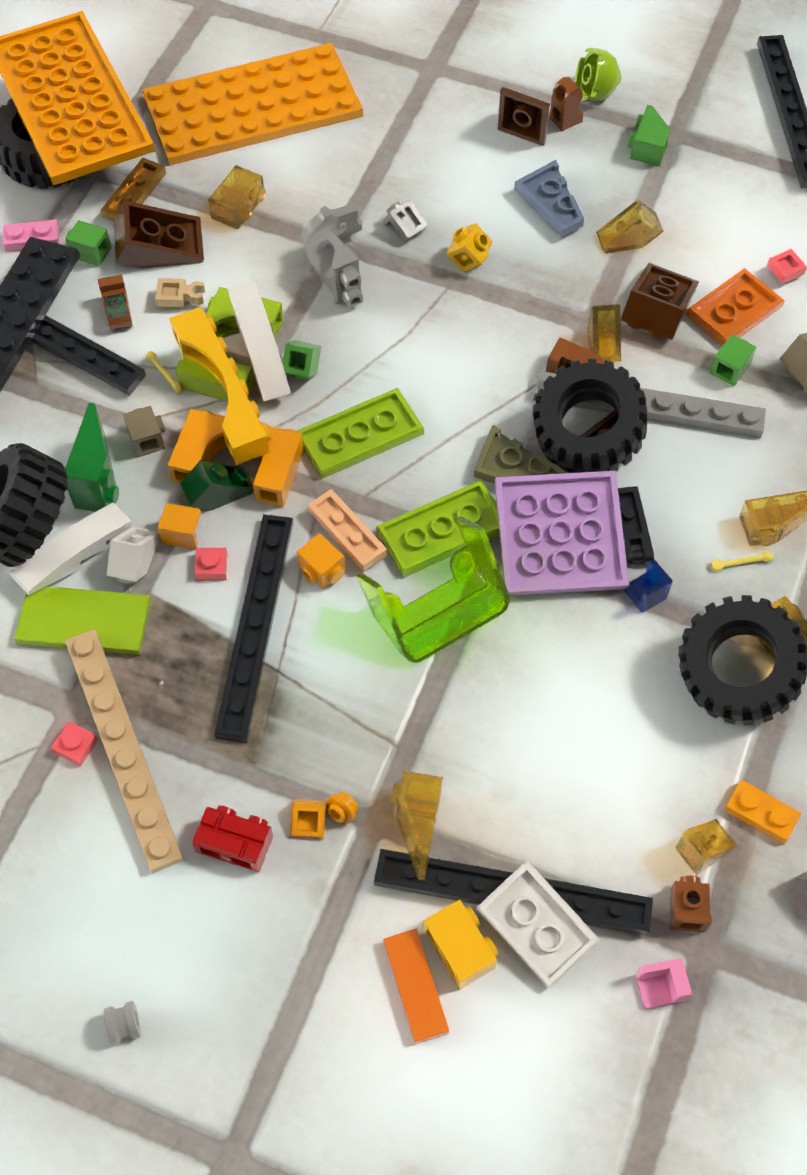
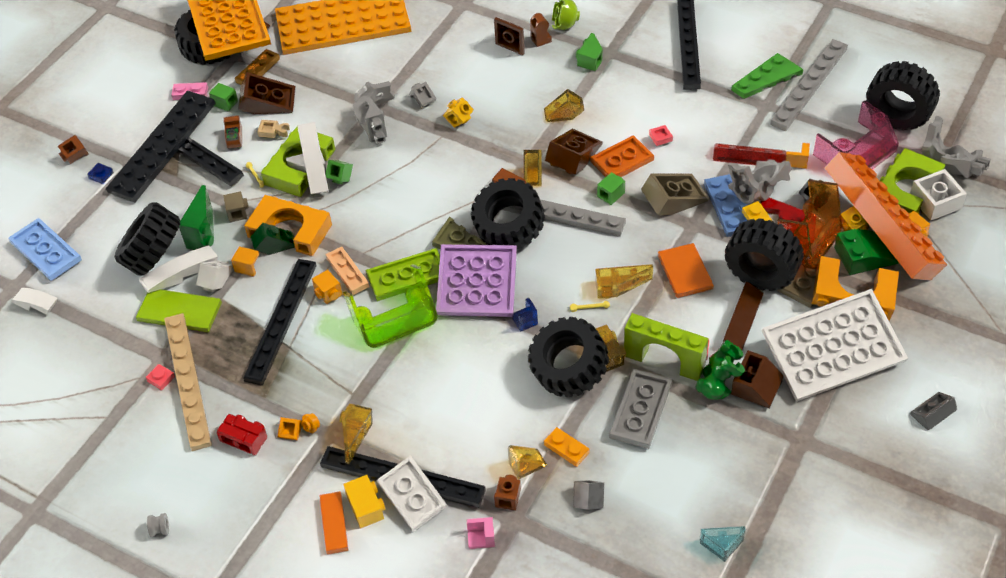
camera: 10 degrees right, 10 degrees down
(211, 564) = (261, 284): coral plate -> none
(237, 197) = (320, 75): clear yellow brick -> none
(241, 427) = (291, 204): yellow arch -> none
(360, 433) = (368, 217): lime tile -> none
(549, 196) = (518, 86): sand blue wing -> none
(634, 526) = (523, 280): black plate -> none

